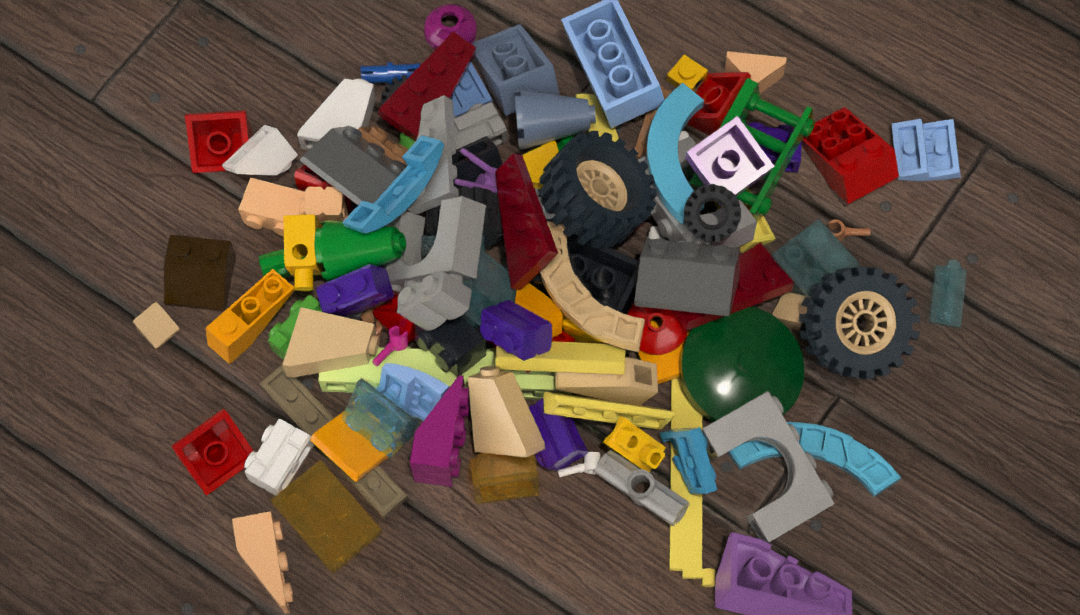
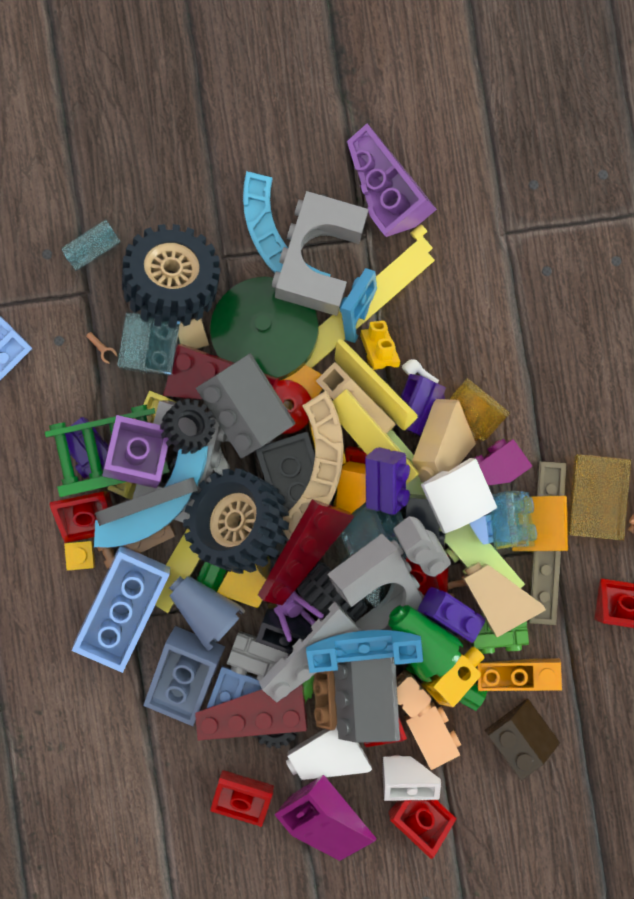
camera: 135 degrees left, 20 degrees up
(156, 325) = (580, 730): tan slope -> none
(278, 457) = (592, 563): white brick -> none
(301, 68) = (324, 820): none -> magenta slope
(377, 33) = (242, 798): none -> red slope
(387, 72) = (264, 757): blue pin -> none
(395, 343) = (458, 558): dark pink hand -> none
(436, 32) = (188, 736): magenta piece -> none
(445, 375) = (459, 495): none -> white slope
(657, 498) = (401, 301): light grey piece -> none
(680, 139) = (146, 501): none -> dark grey beam
(762, 68) = (37, 510): light nougat slope -> none
(850, 155) = (43, 392): red slope -> none

